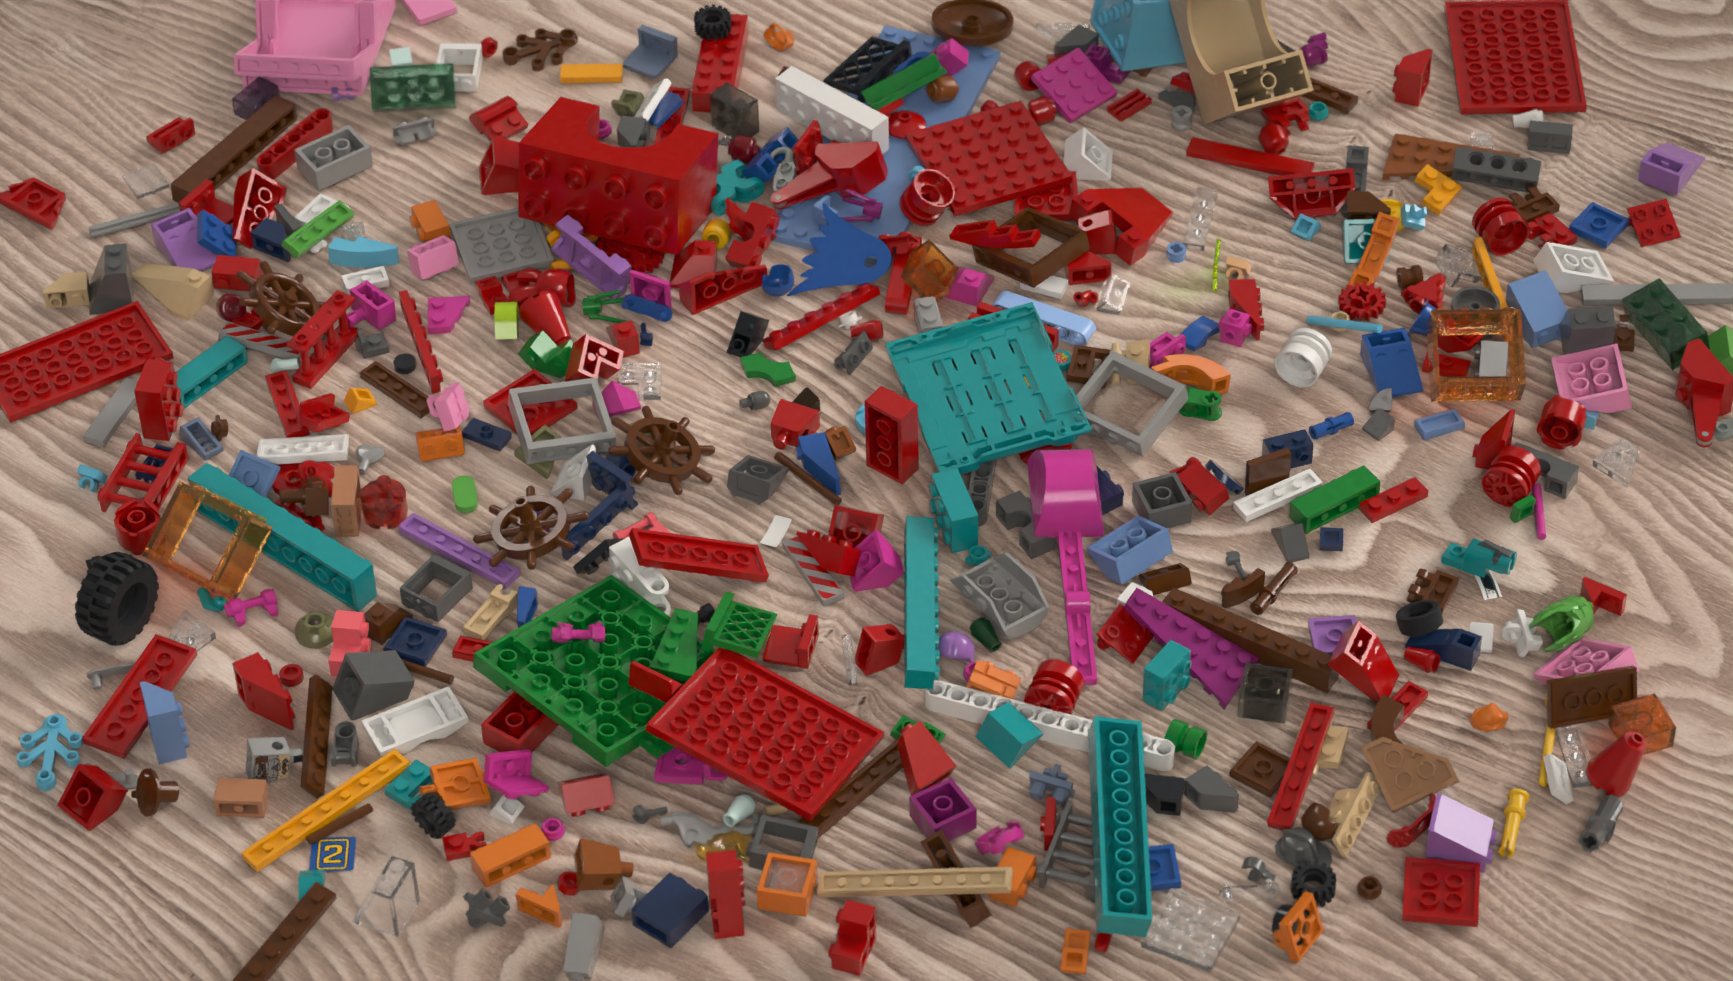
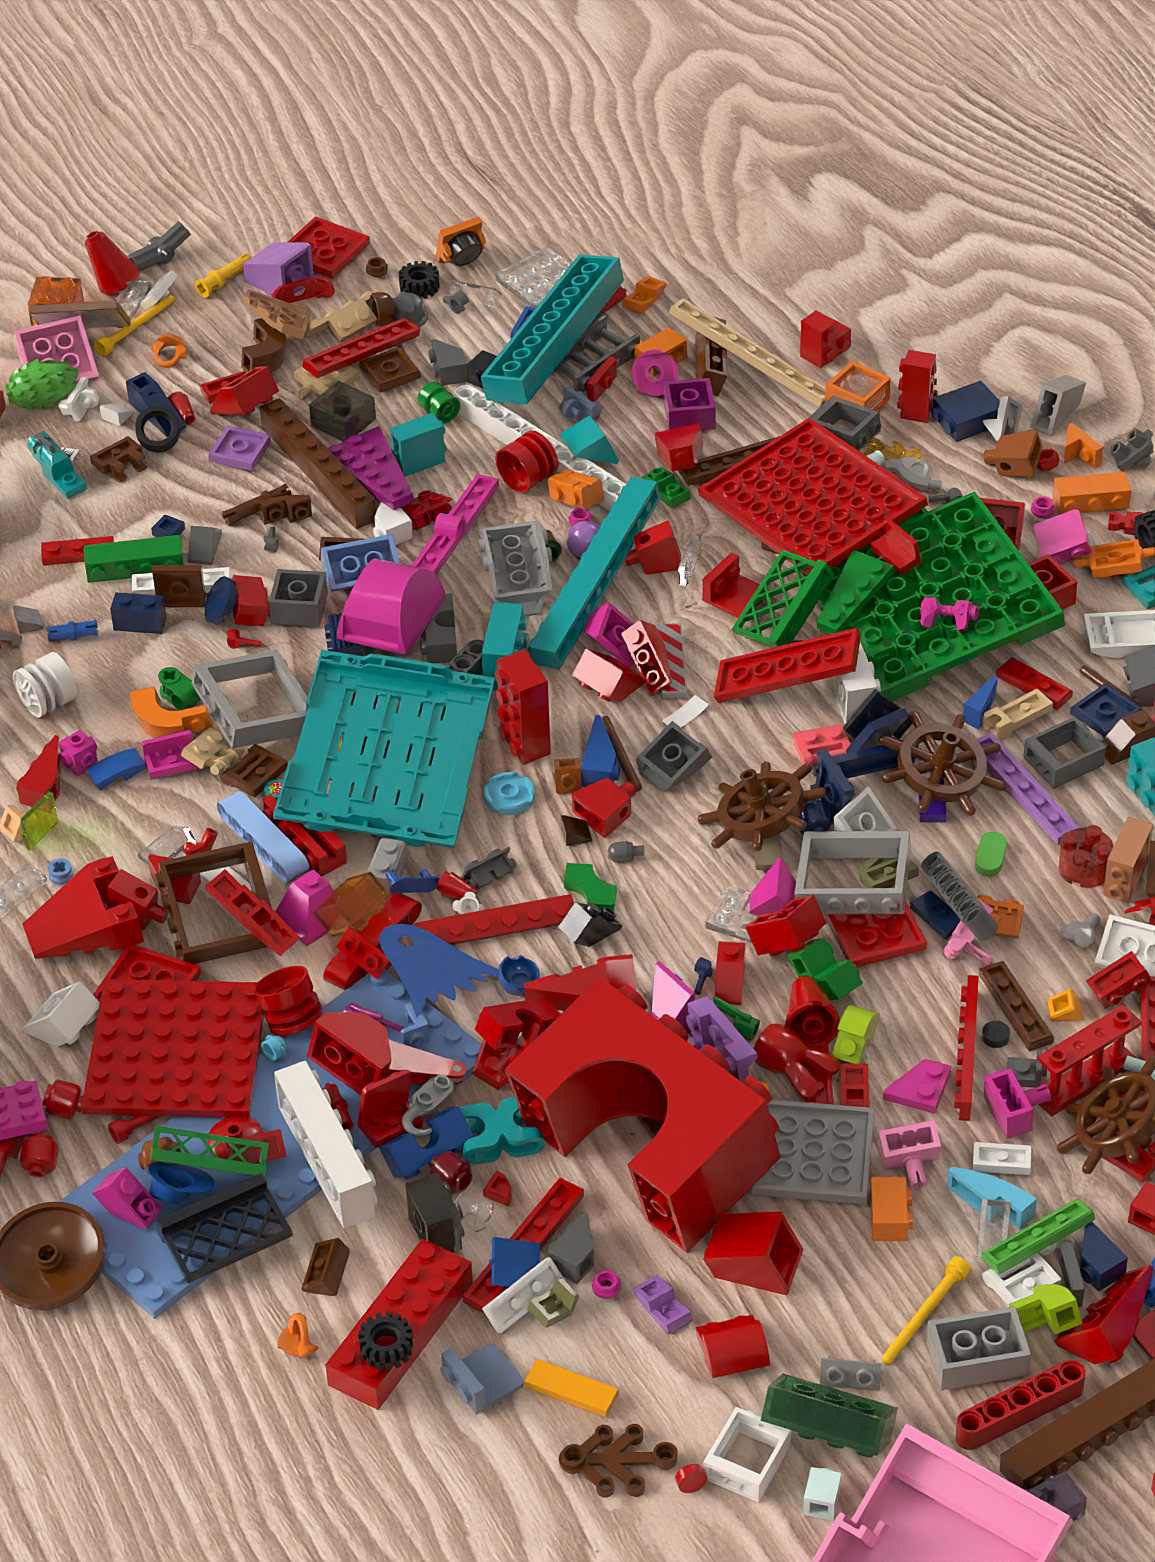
camera: 155 degrees left, 0 degrees up
(292, 194) = (1048, 1305): none -> lime brick
(369, 205) = (956, 1271): none -> yellow piece
(464, 399) = (959, 896): none -> dark grey beam
(594, 526) = (885, 725): none -> dark blue tile
(900, 301) = (410, 884): none -> blue piece

